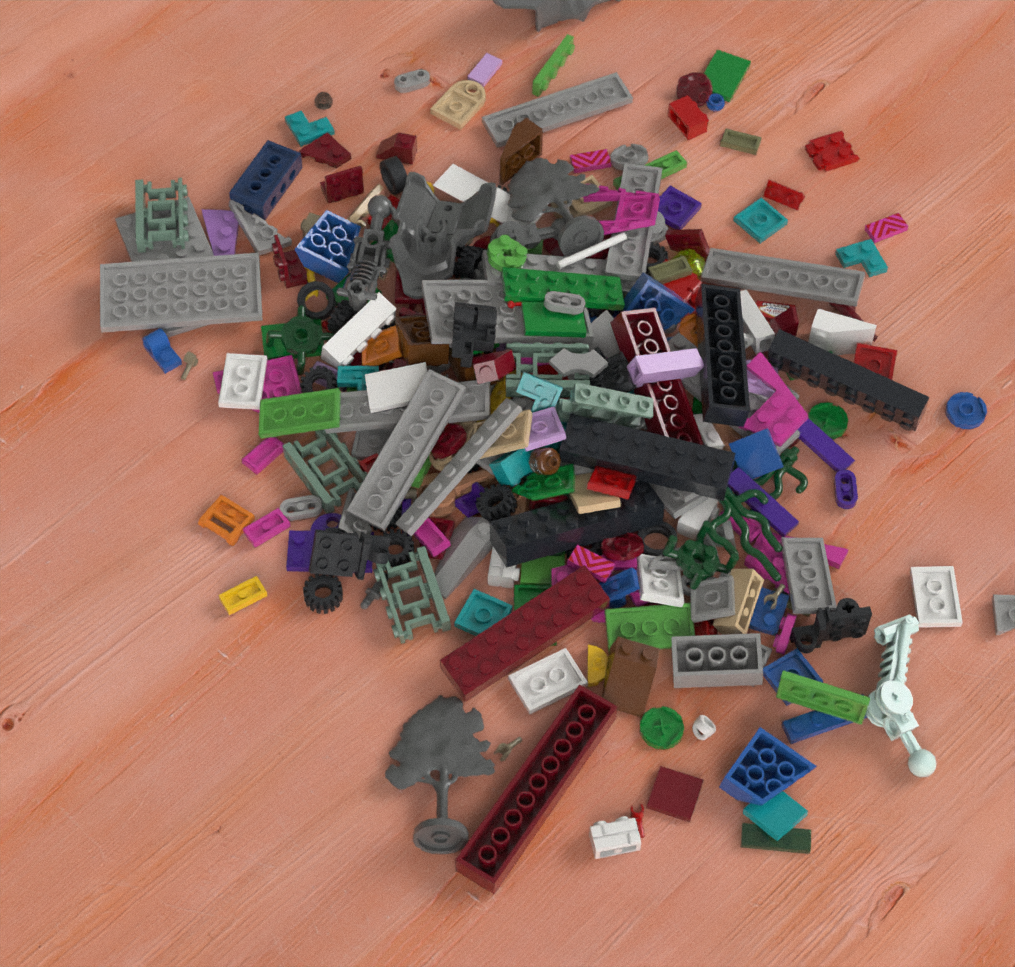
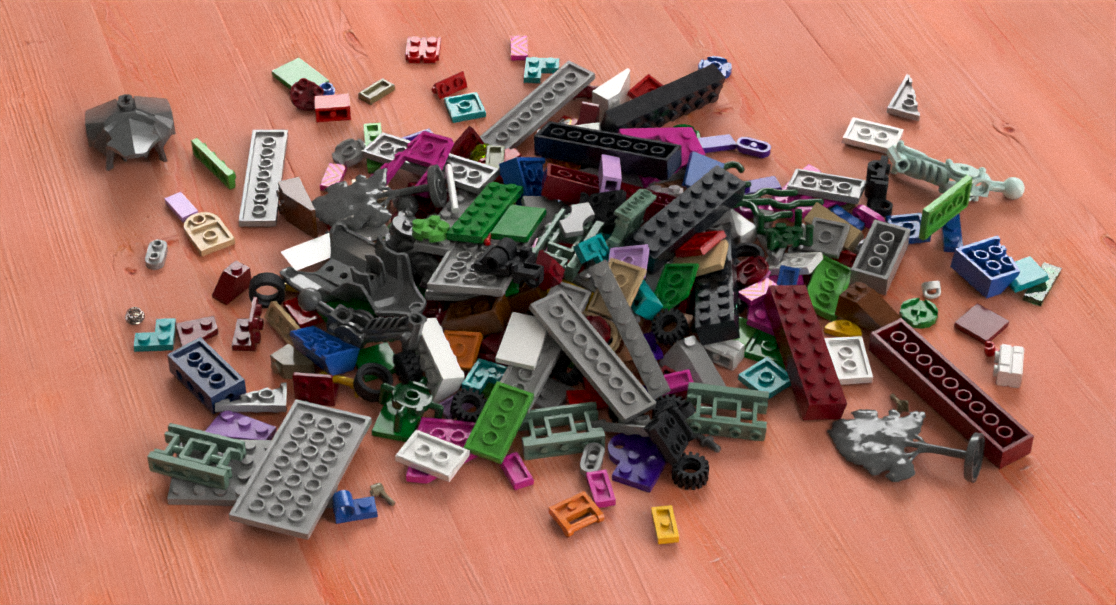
camera: 65 degrees left, 15 degrees down
(544, 461) = (656, 276): reddish brown head -> none
(564, 302) = (510, 208): light grey plate -> none
(774, 596) = (841, 209): dark tan hand -> none

